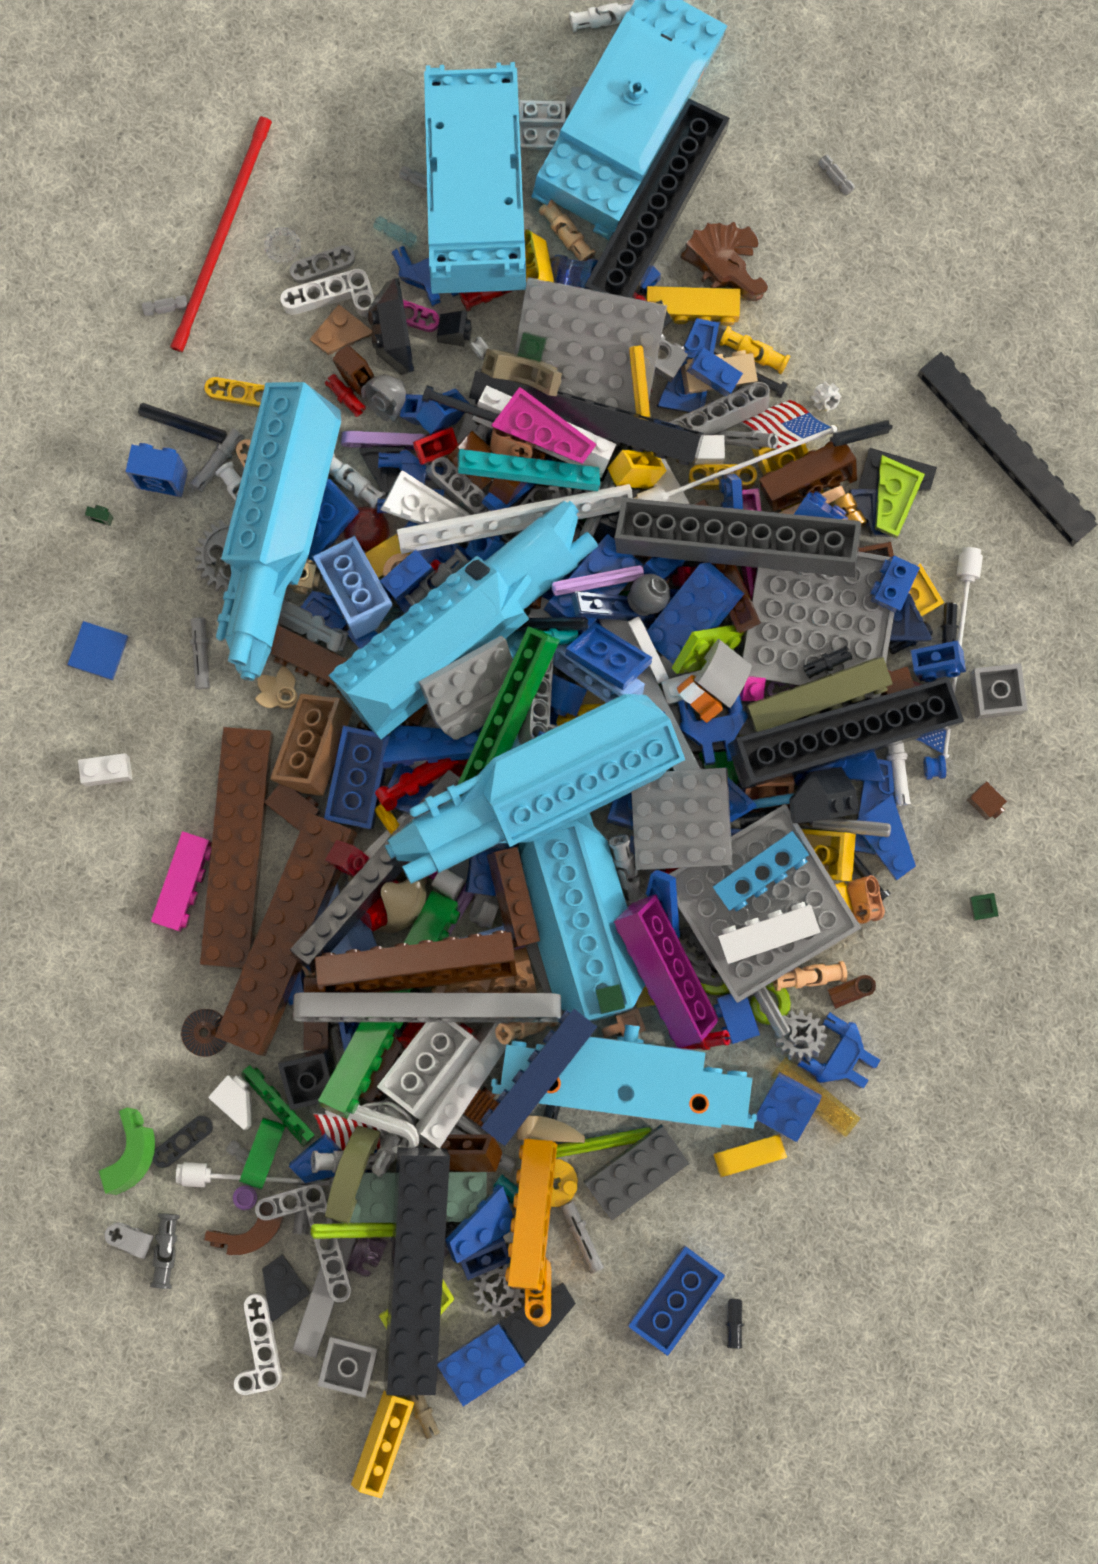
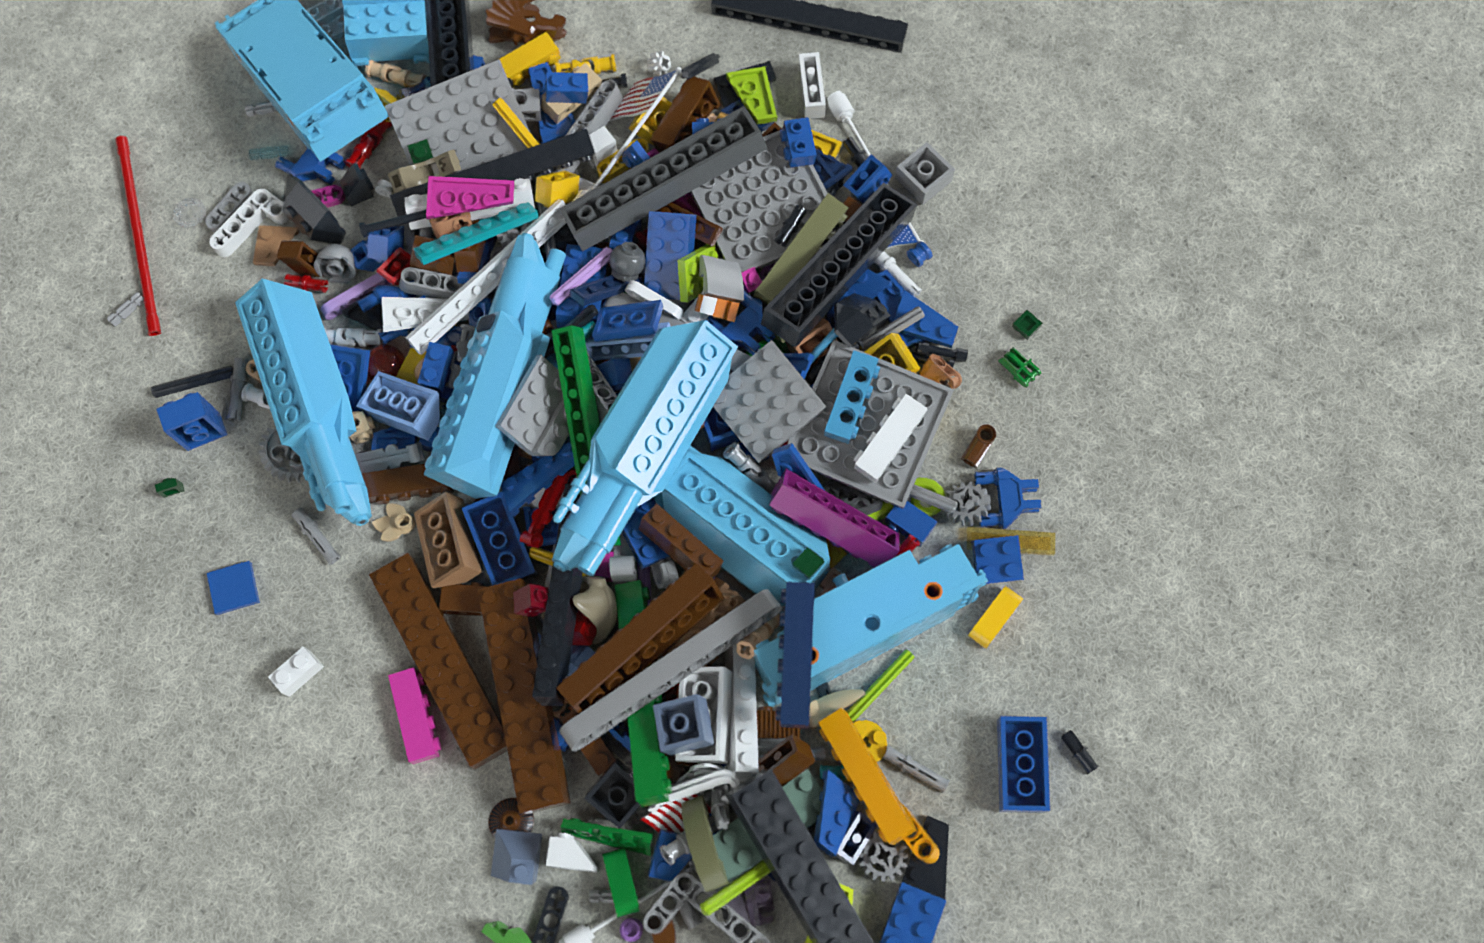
camera: 30 degrees left, 10 degrees down
(189, 1067) = (516, 856): none -> sand blue slope
(248, 397) = (233, 333): yellow beam -> none
(402, 1064) = (683, 724): none -> sand blue brick
(636, 1172) = (920, 690): dark grey plate -> none
(765, 439) = (628, 117): light grey pin -> none
(808, 977) = (946, 450): light nougat piece -> none
(869, 862) = (958, 354): none -> black bar
(945, 942) = (1017, 364): none -> green arm
(956, 524) = (812, 85): none -> white brick
(987, 801) = (974, 251): reddish brown brick -> none

